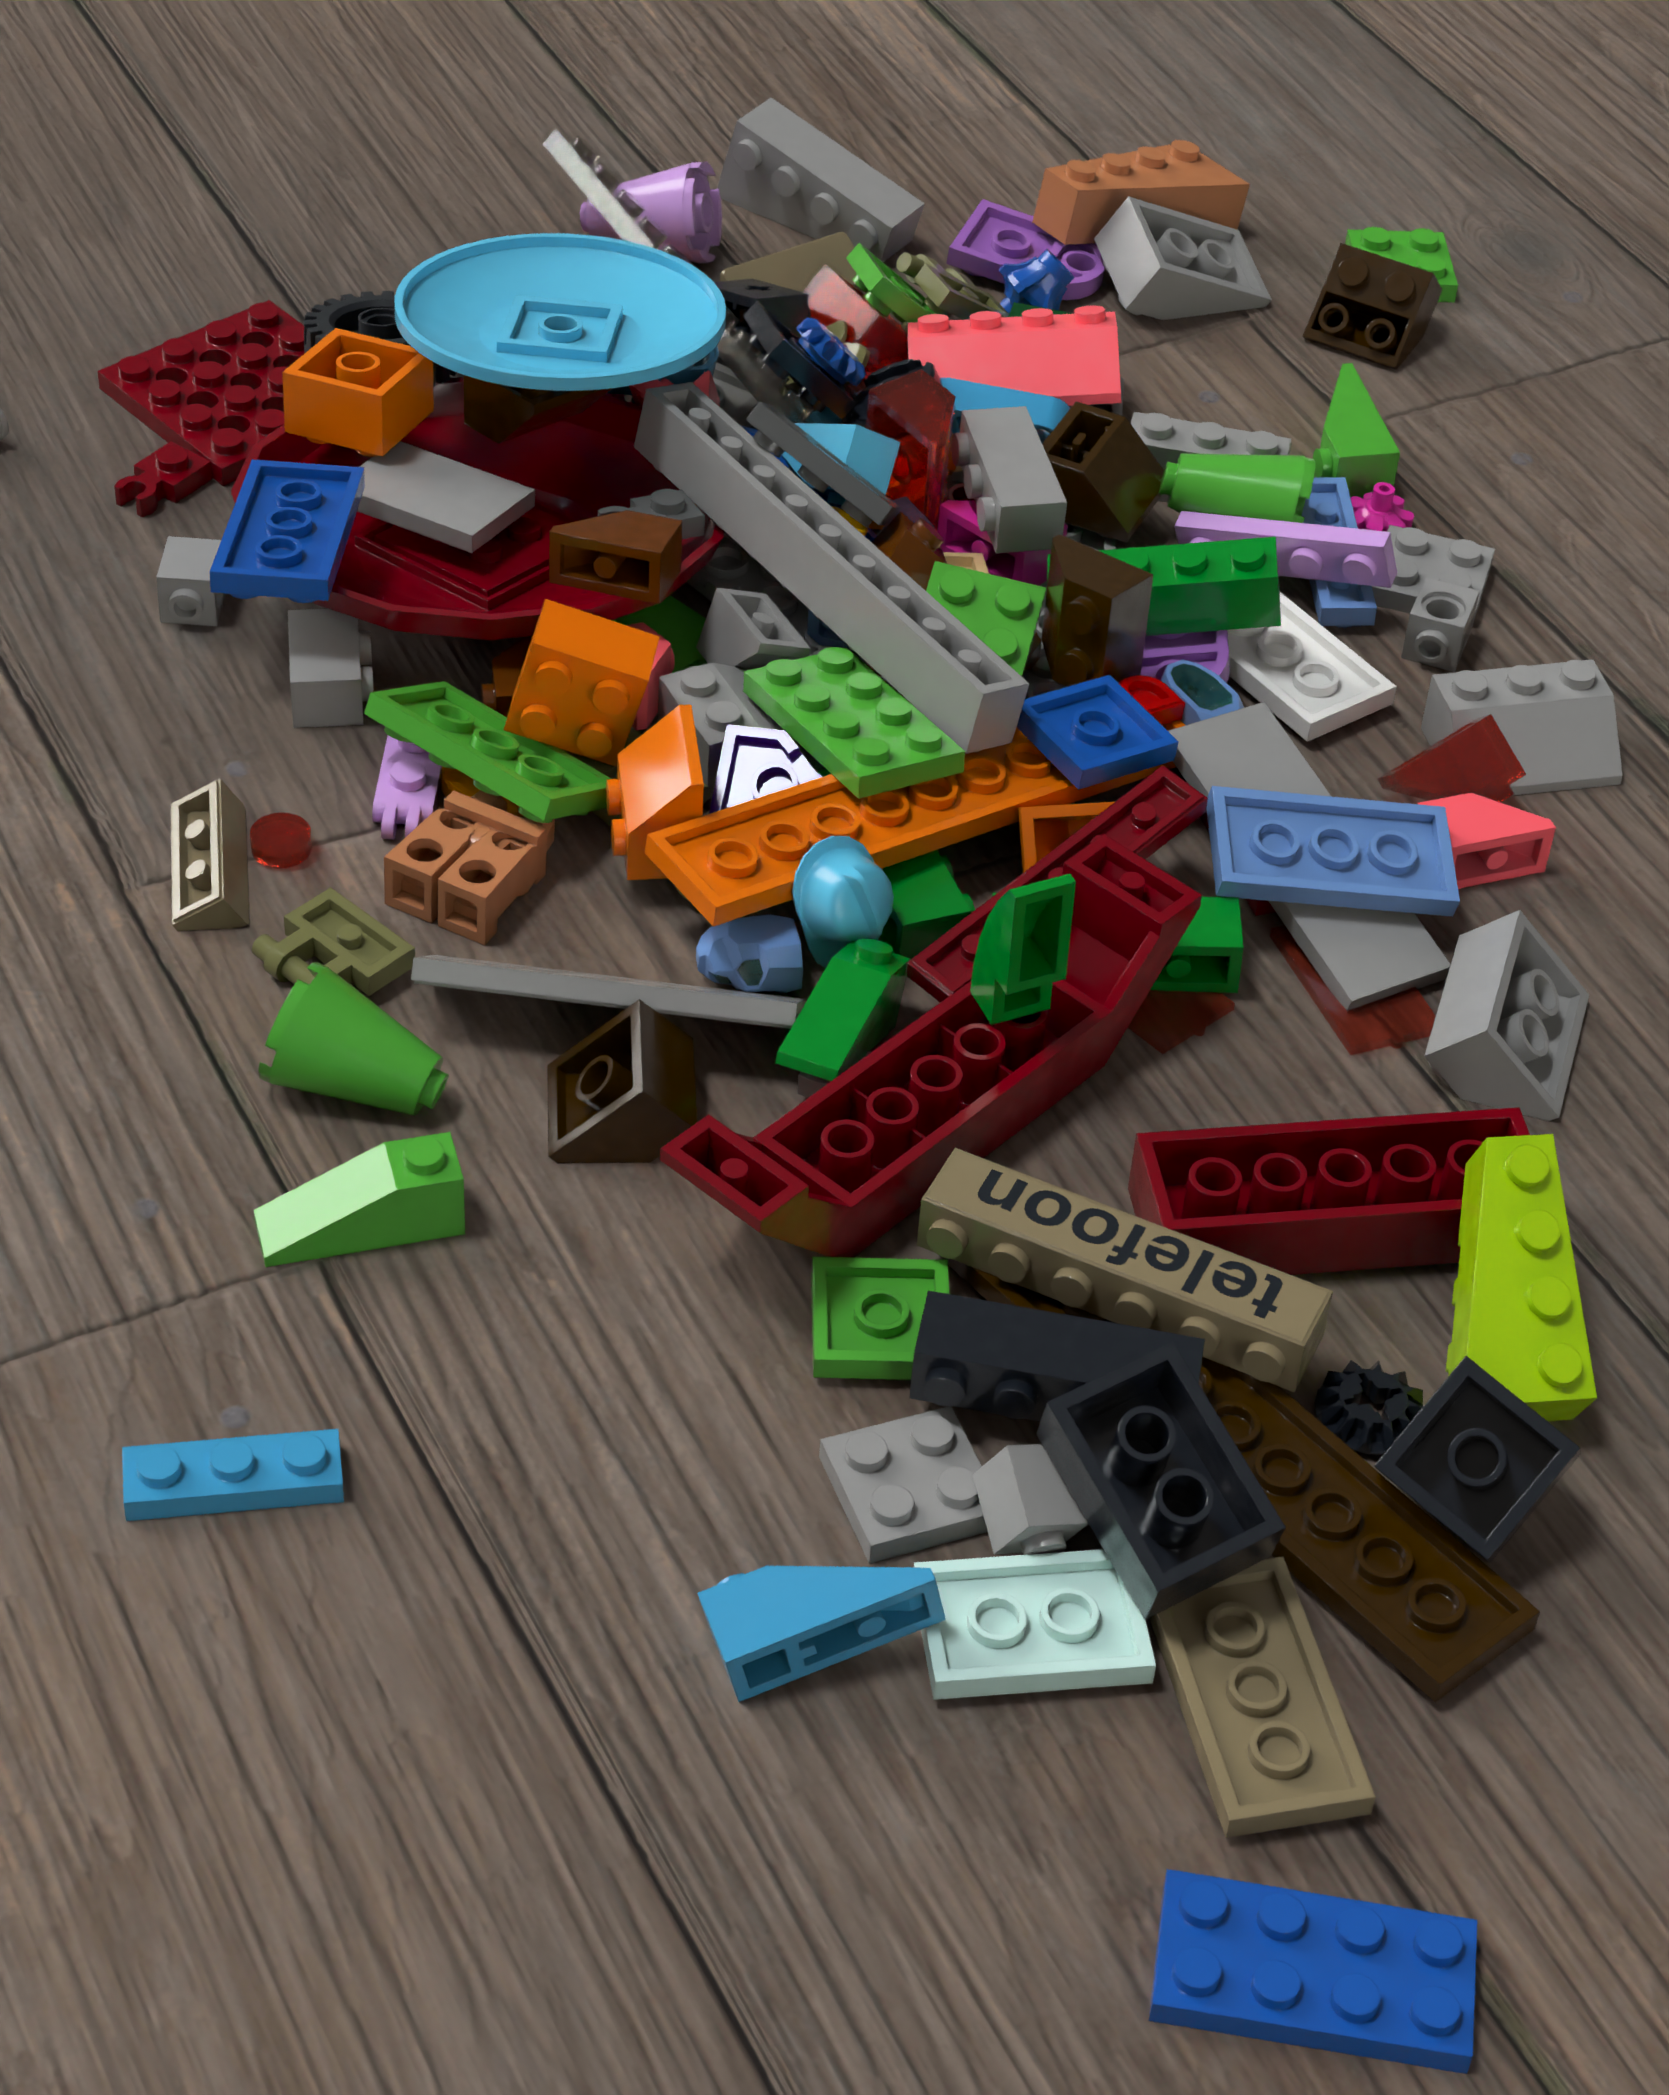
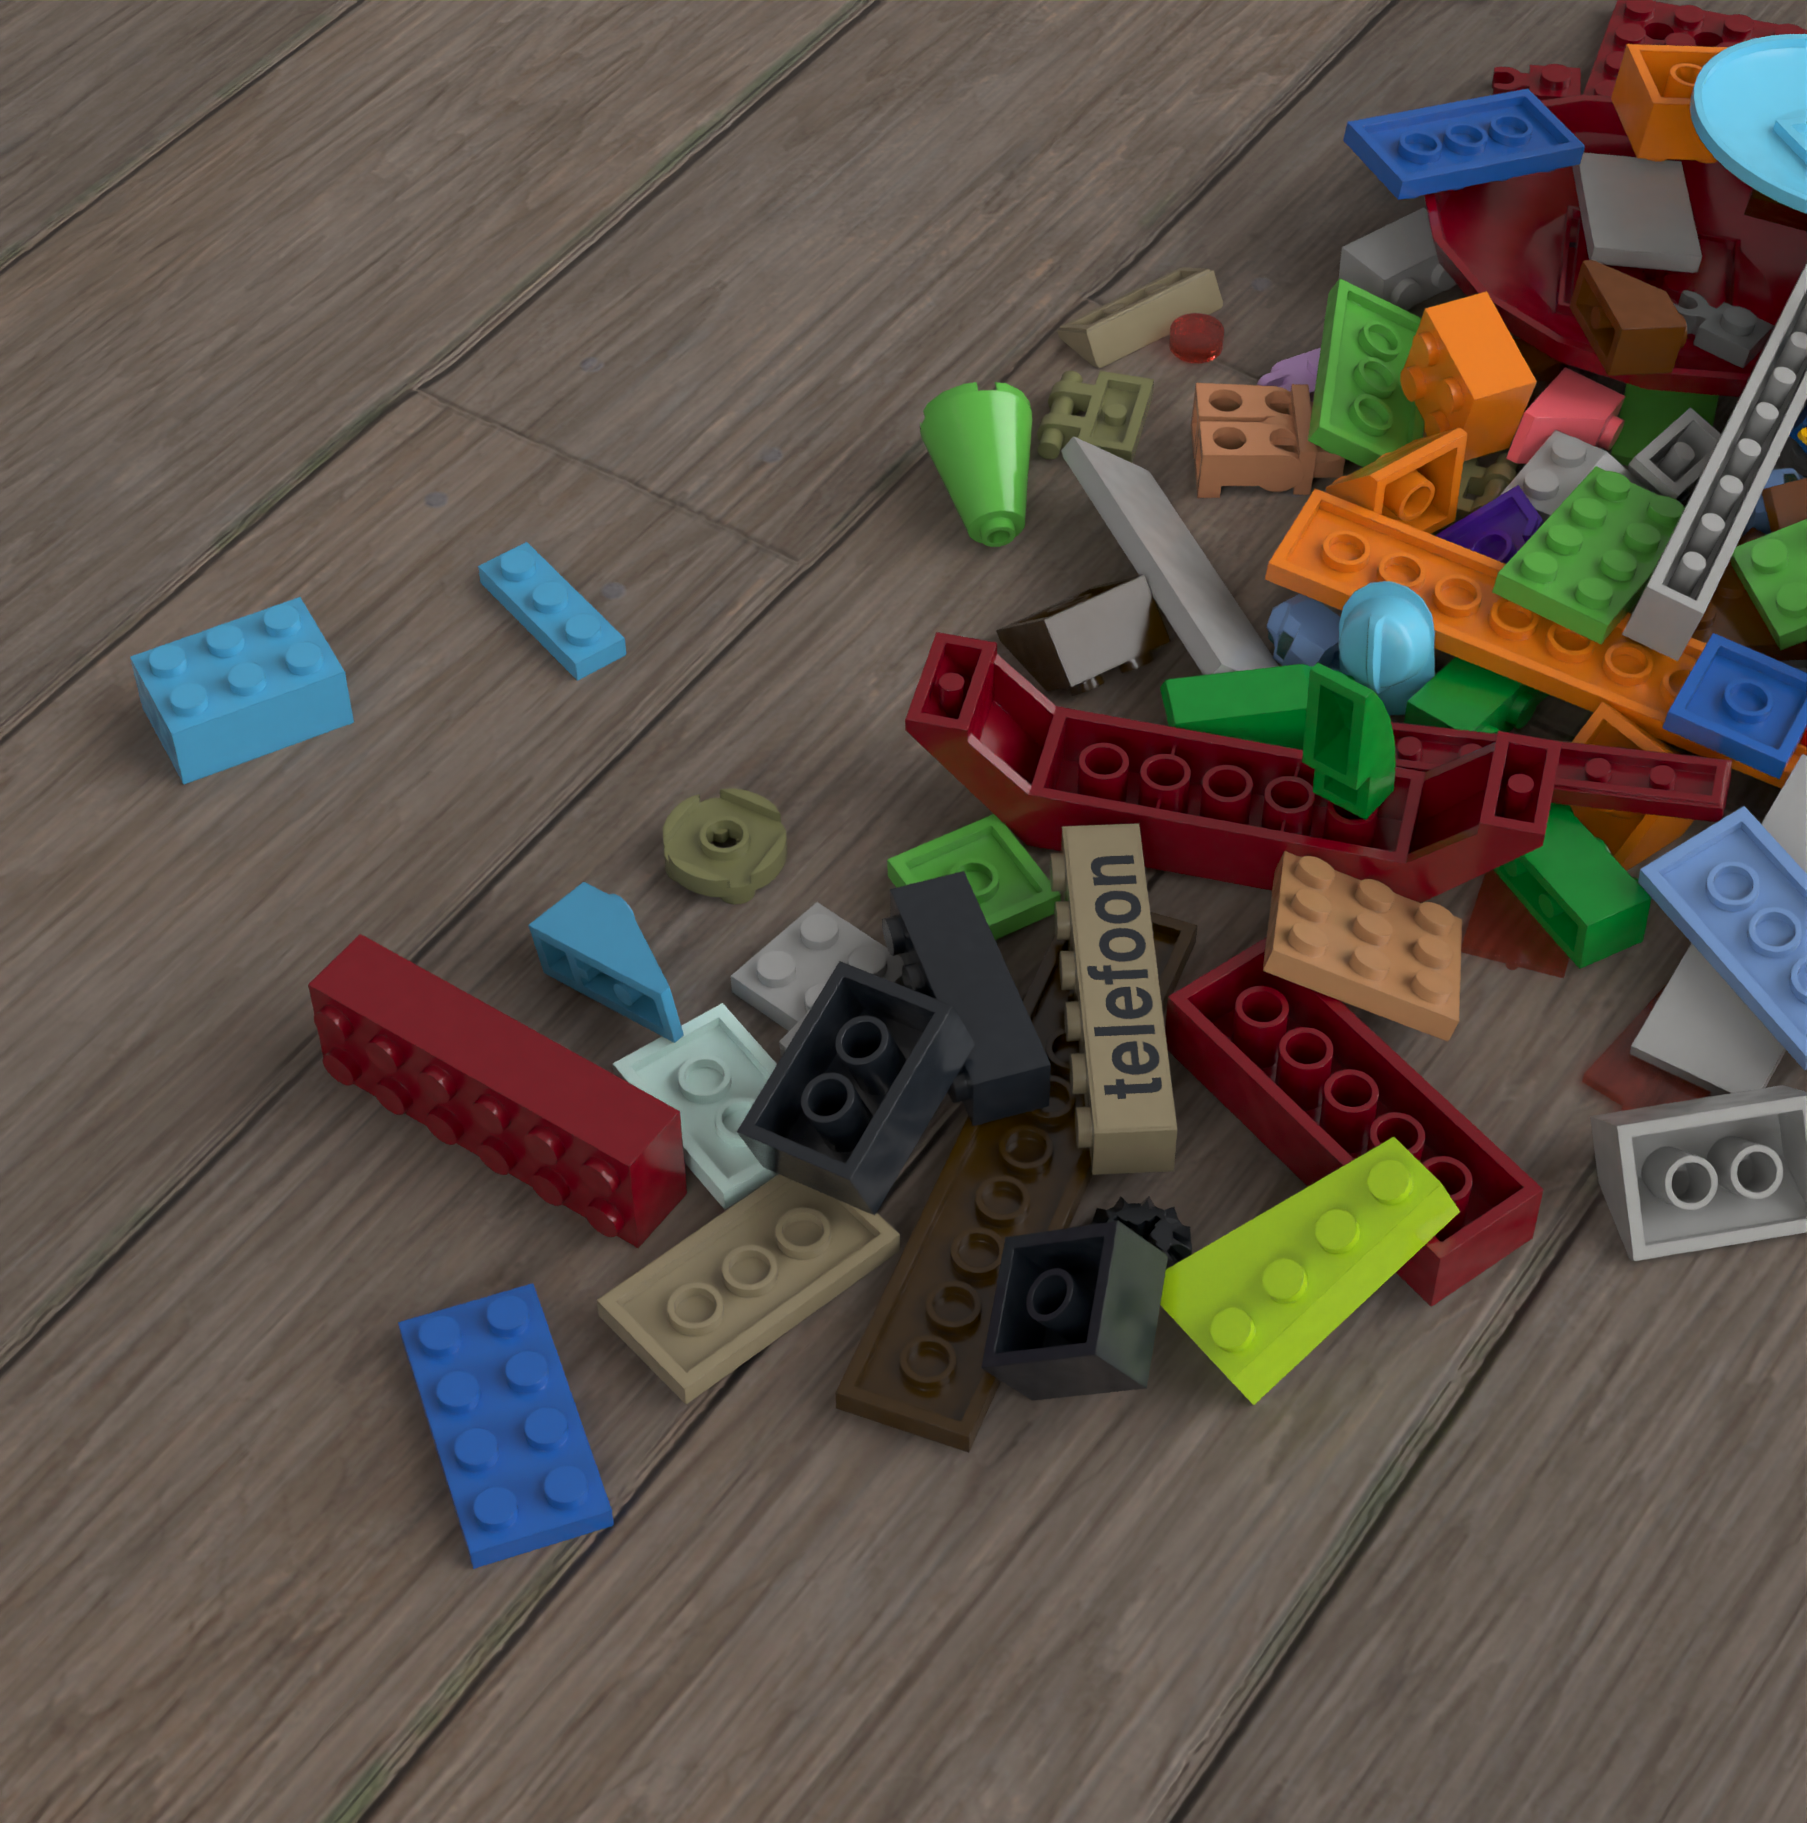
camera: 65 degrees right, 5 degrees up
(151, 1786) = (242, 690): none -> dark azure brick
(374, 1201) = (857, 556): bright green slope -> none
(683, 1508) = (731, 871): none -> olive plate
(929, 1780) = (500, 1090): none -> dark red brick
(1169, 1086) = (1365, 945): none -> medium nougat plate

